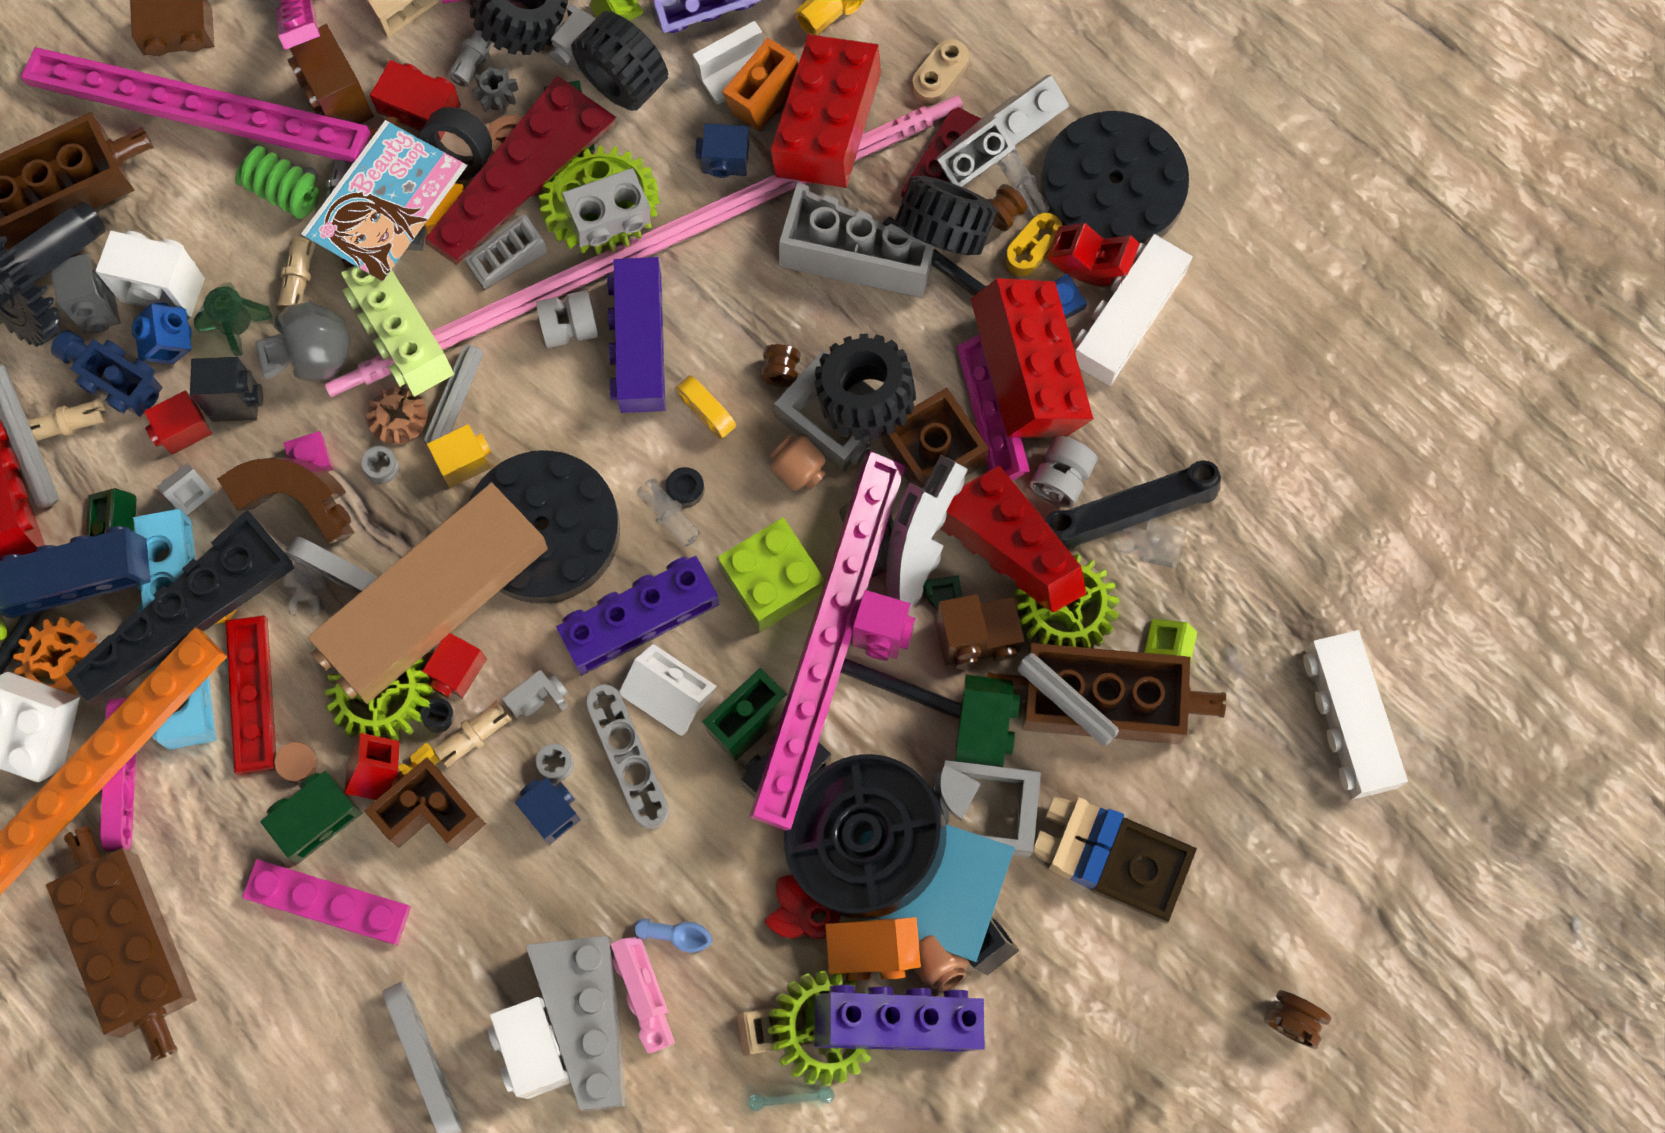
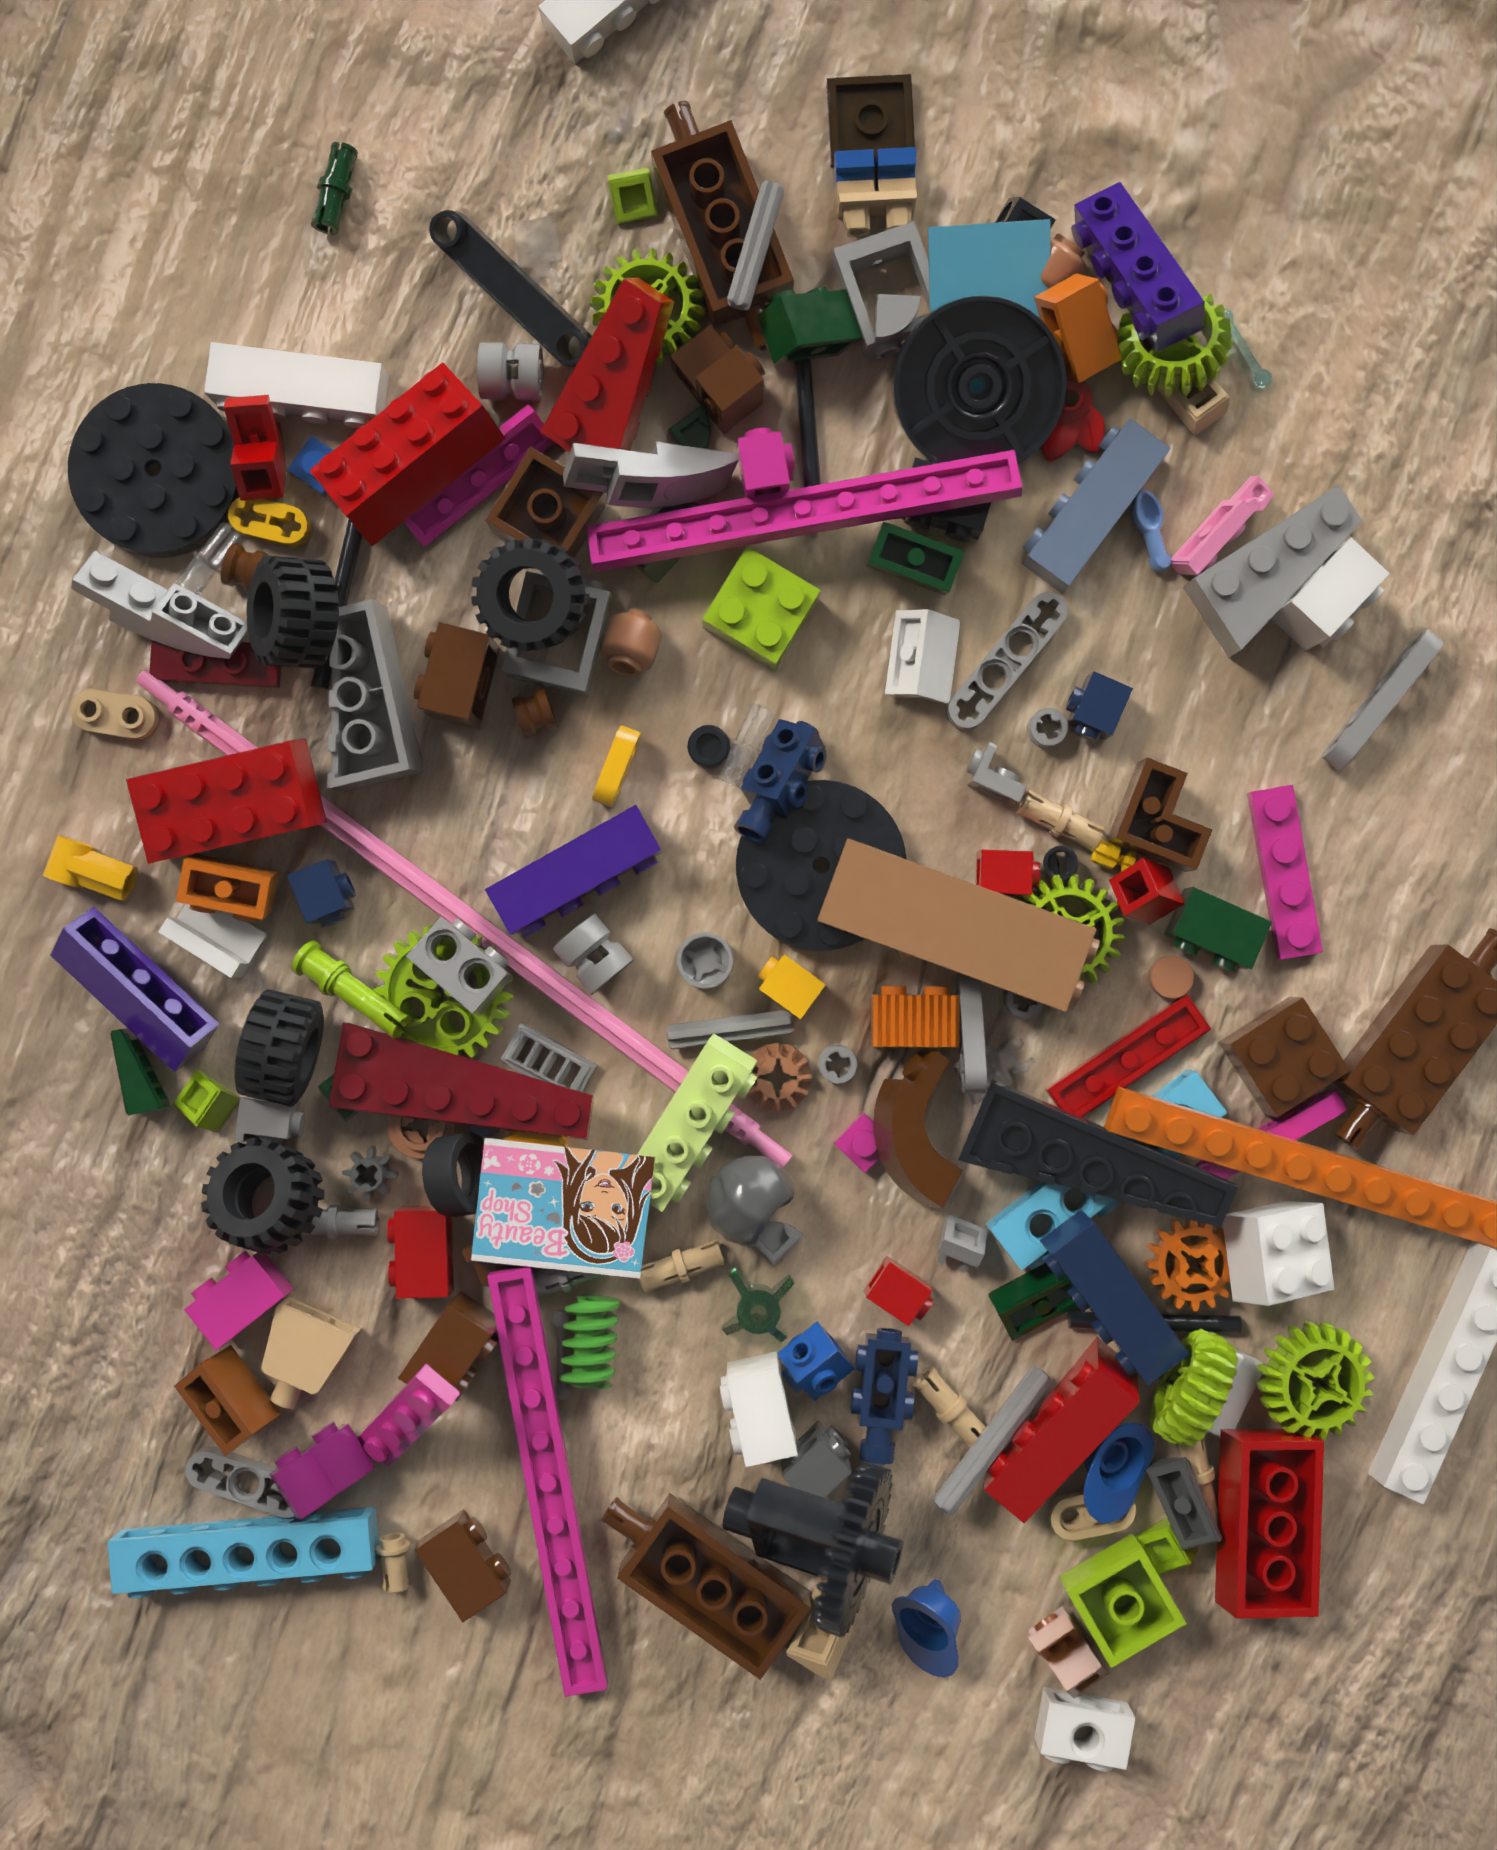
camera: 120 degrees left, 15 degrees up
(176, 817) = (1284, 1056): none -> reddish brown brick
(225, 389) = (844, 1256): black brick -> none
(379, 534) = (915, 1019): none -> orange brick
(515, 398) = (705, 960): none -> light grey wheel
(627, 521) = (779, 777): none -> dark blue brick
(638, 614) = (865, 720): dark purple brick -> none
(651, 129) = (336, 979): none -> lime pin
(717, 892) = (1095, 506): none -> sand blue brick
(831, 309) = (457, 675): none -> reddish brown brick
(1280, 410) = (334, 188): none -> dark green pin

